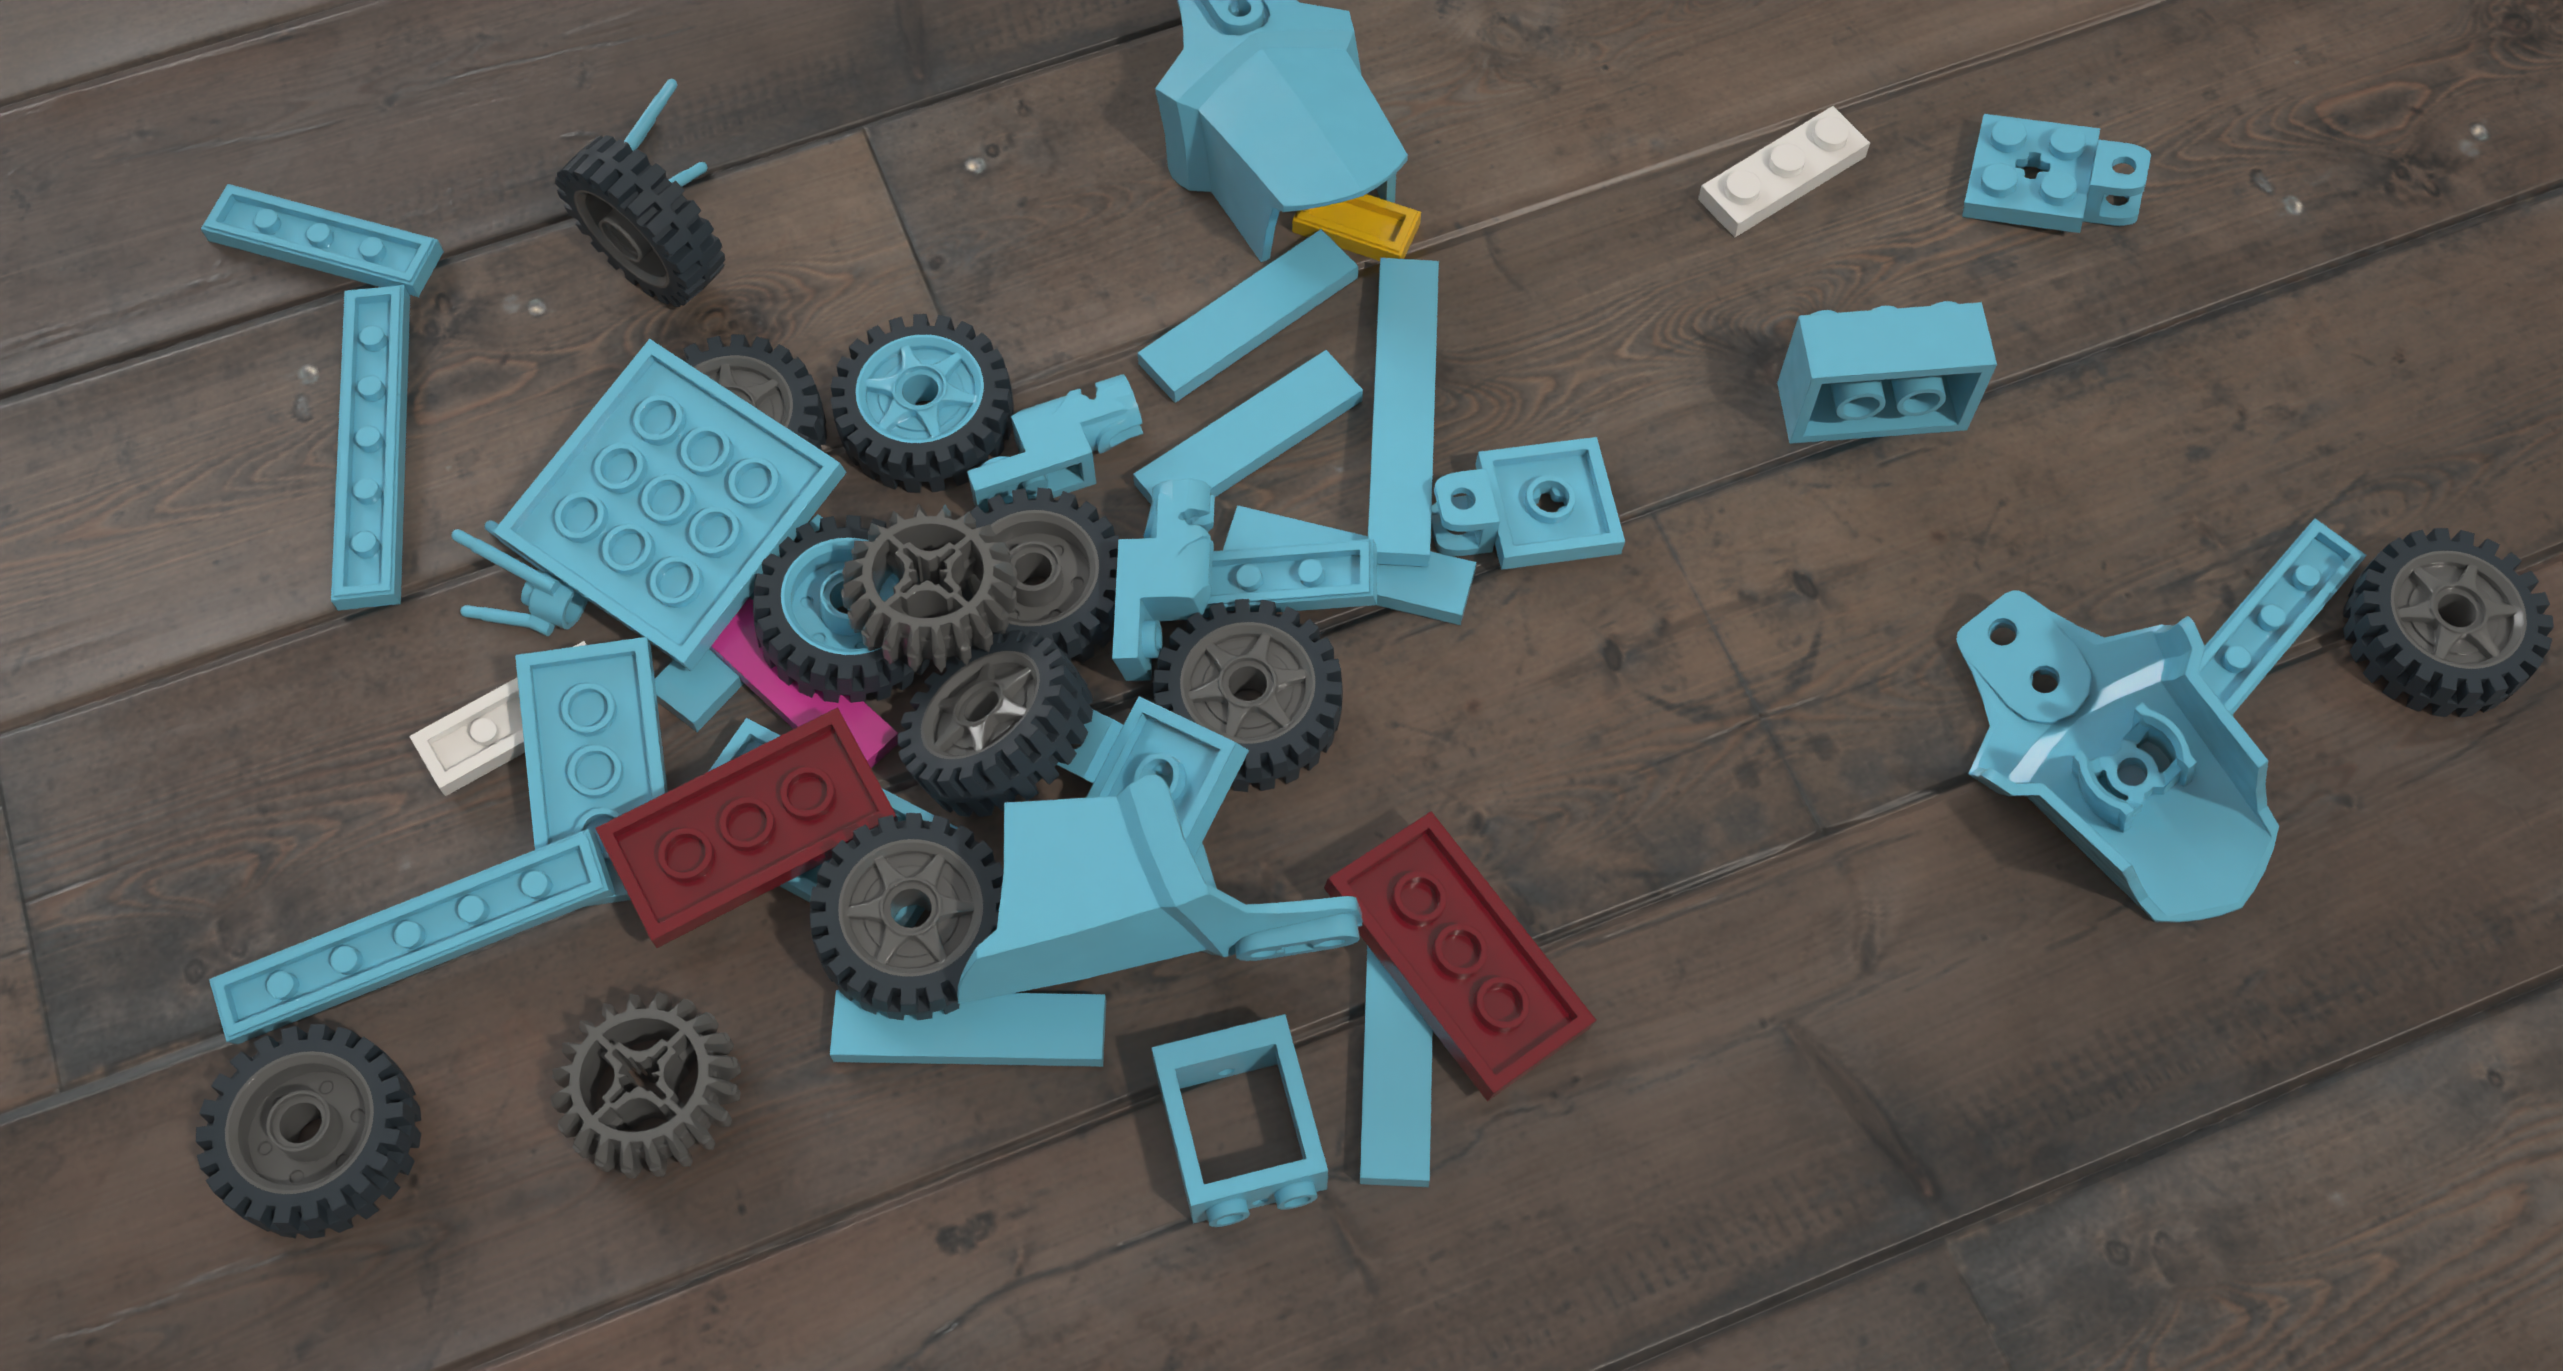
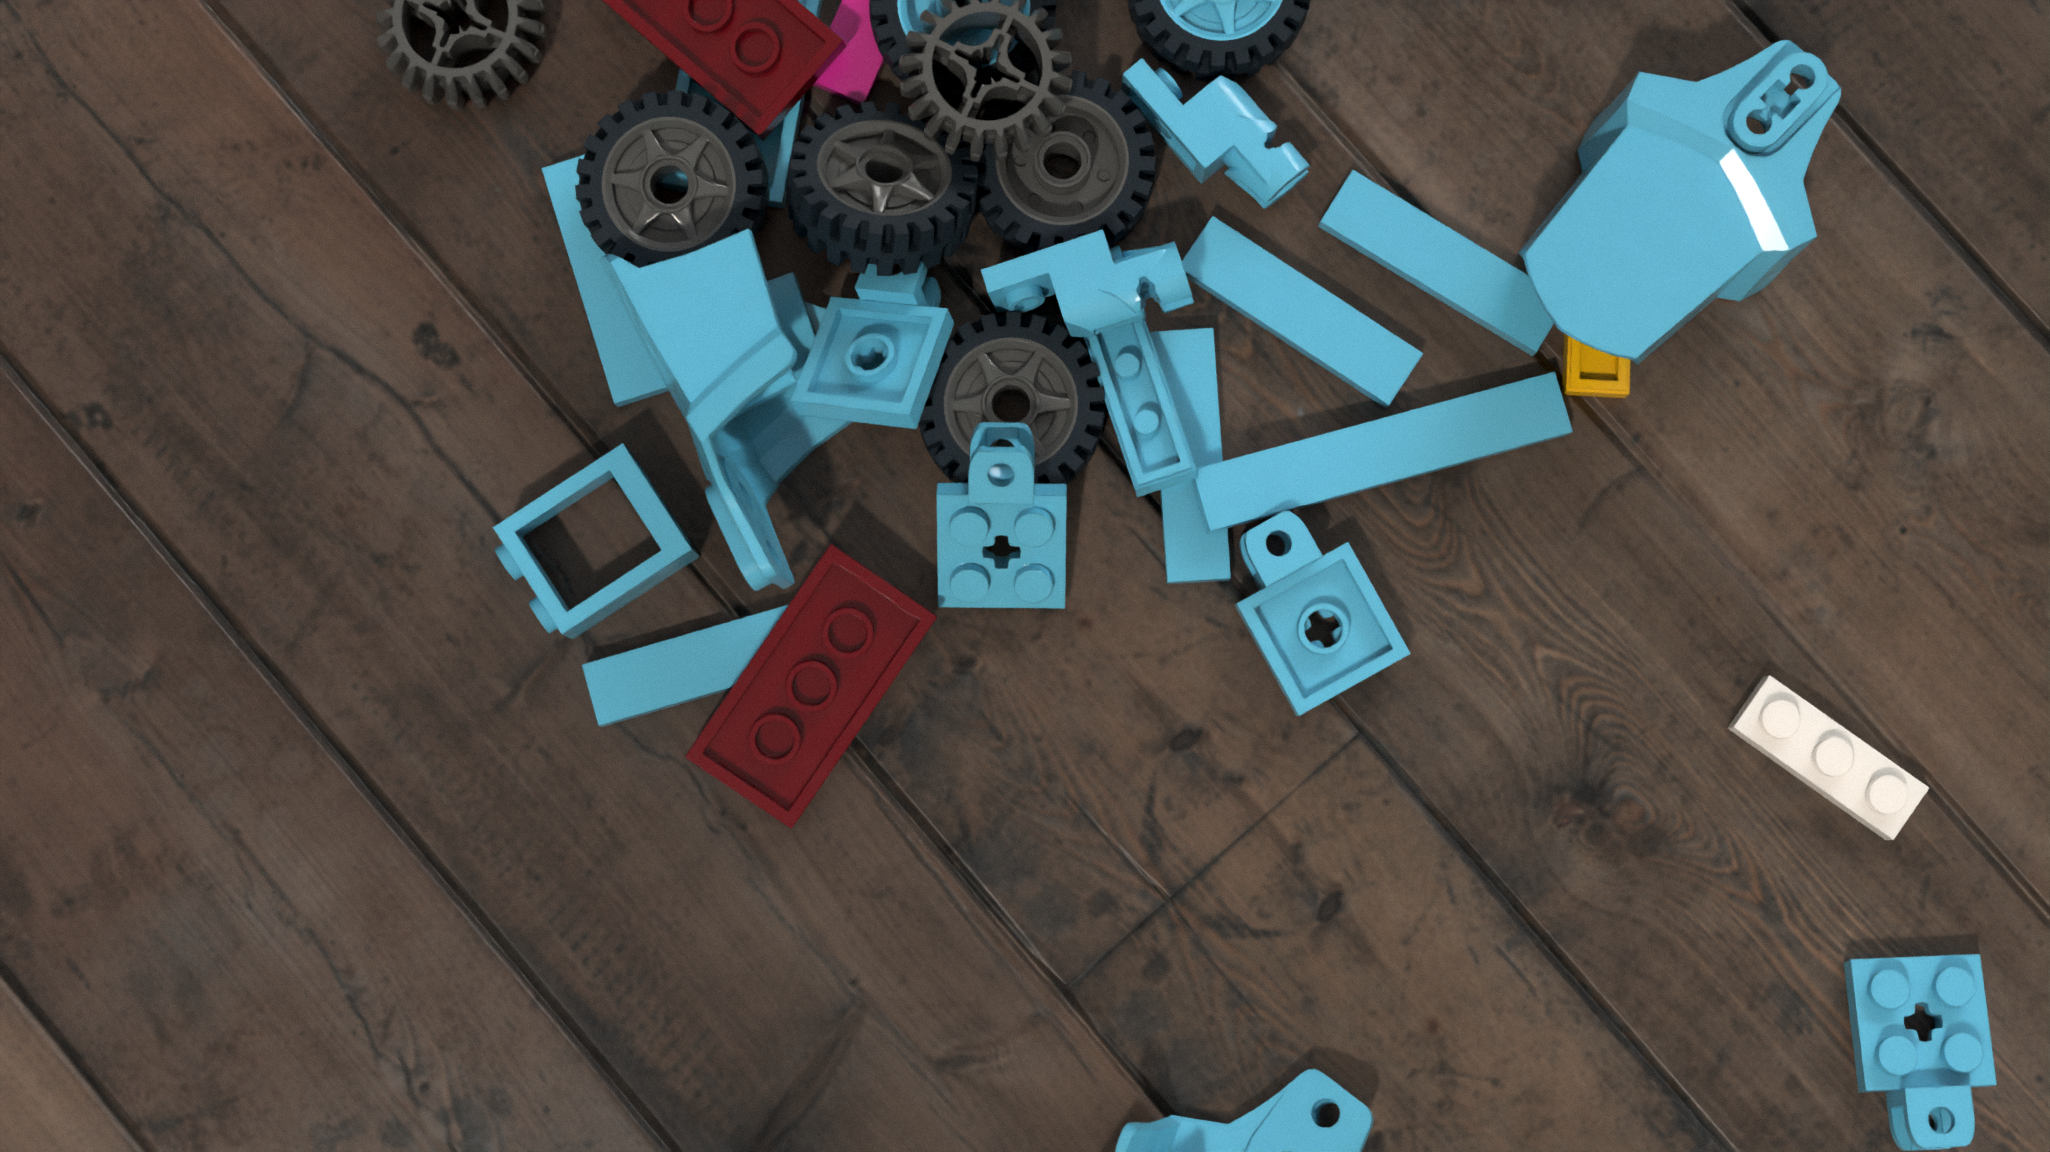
camera: 75 degrees right, 20 degrees up
(1340, 713) = (1005, 503): none -> medium azure plate
(1885, 372) = (1583, 924): medium azure brick -> none

